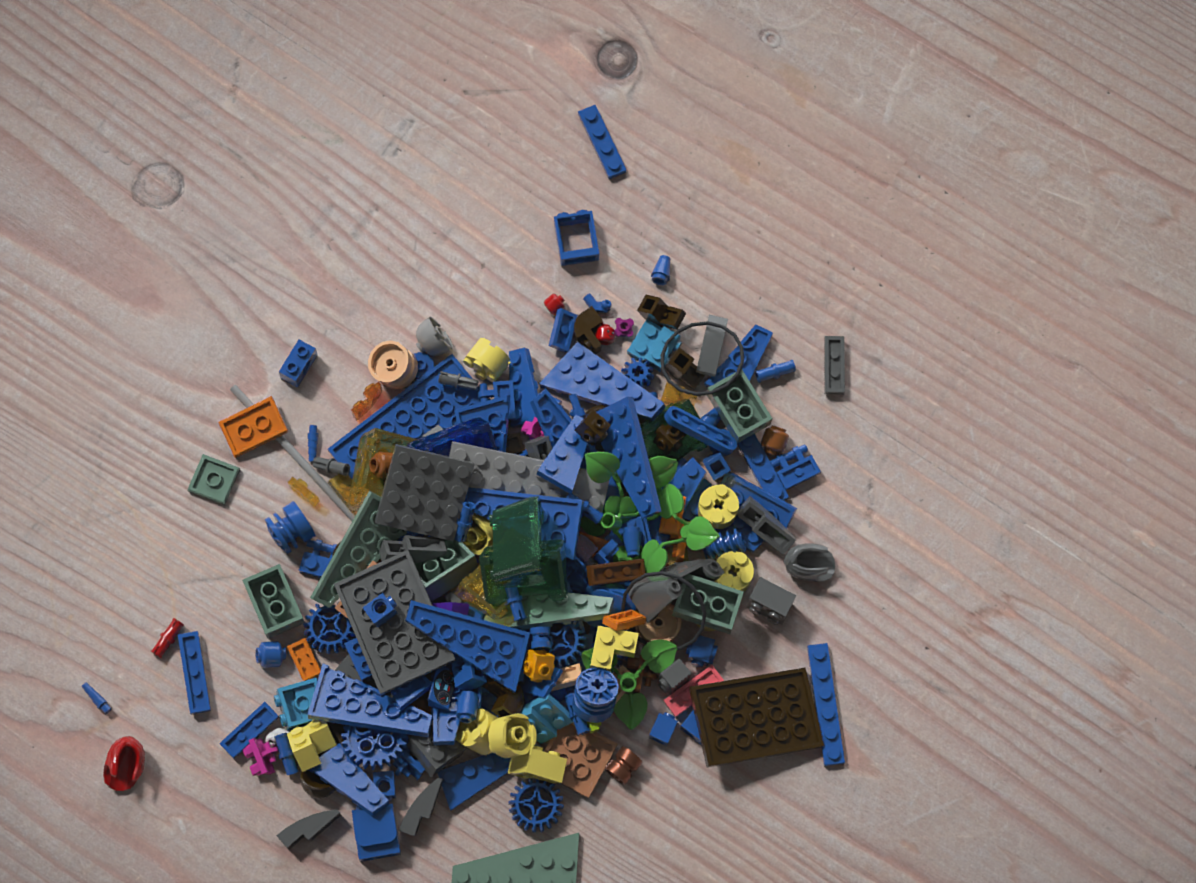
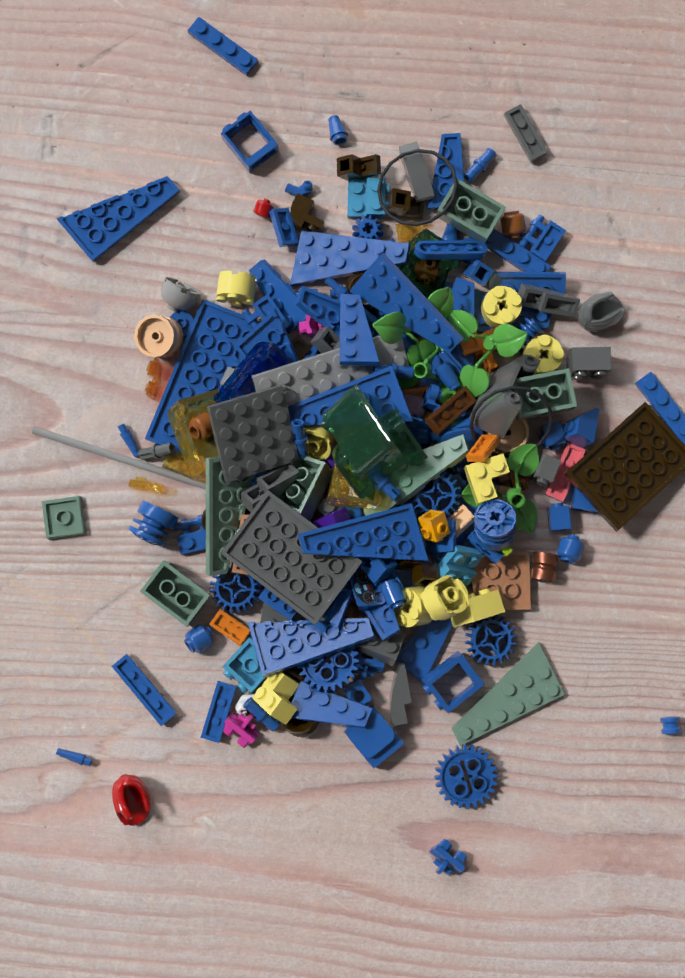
camera: 30 degrees left, 10 degrees up
(167, 638) = (104, 673): red pin -> none
(253, 427) = (71, 454): orange tile -> none
(298, 363) = (76, 379): blue brick -> none
(307, 827) = (315, 765): dark grey slope -> none
(372, 609) = (267, 558): blue brick -> none
(411, 241) = (112, 219): none -> blue wing
(455, 835) = (456, 658): none -> blue window
(457, 381) = (222, 319): dark grey axle -> none
(540, 638) = (426, 504): blue wheel -> none
(593, 428) = (364, 298): dark brown brick -> none
(605, 334) = (321, 211): red piece -> none
(627, 332) = (331, 202): magenta plate -> none
(657, 763) = (570, 549): none -> blue head
(730, 657) = (582, 428): none -> blue slope

